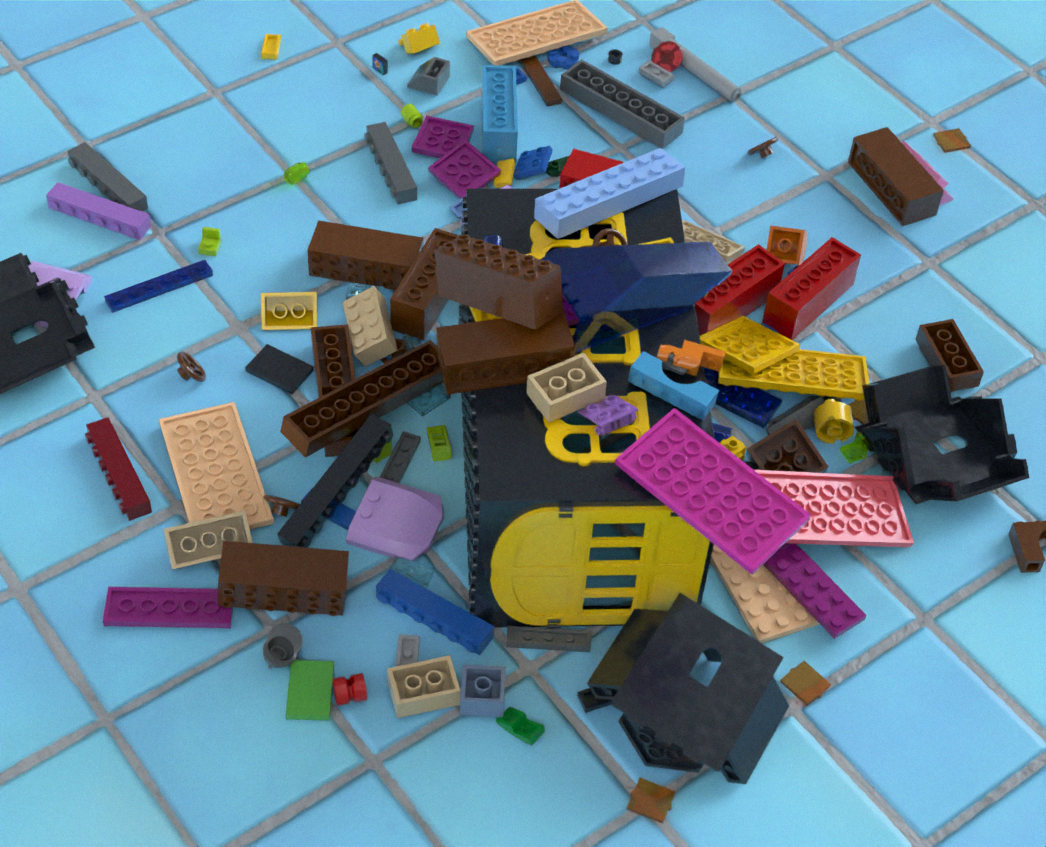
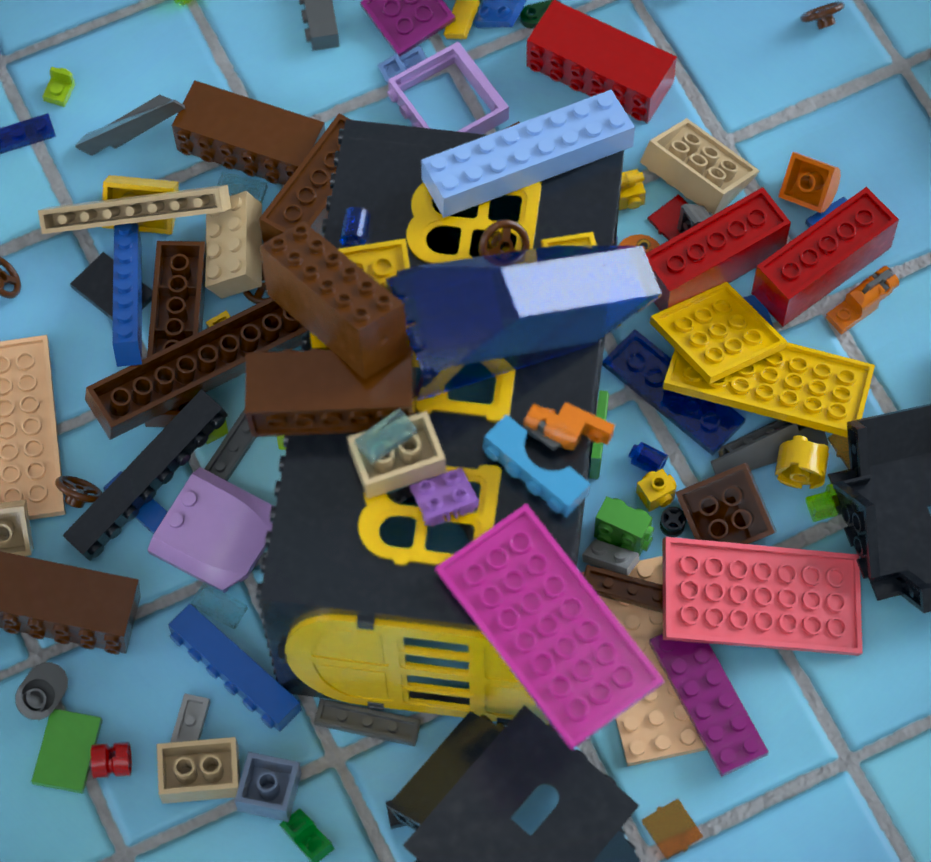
camera: 15 degrees right, 15 degrees up
(274, 256) = (130, 125): none -> dark grey wedge
(289, 307) = (134, 209): none -> tan brick
(298, 360) = (127, 295): none -> blue brick
(558, 369) = (385, 436): none -> clear light blue plate
(844, 316) = (863, 299): none -> orange plate

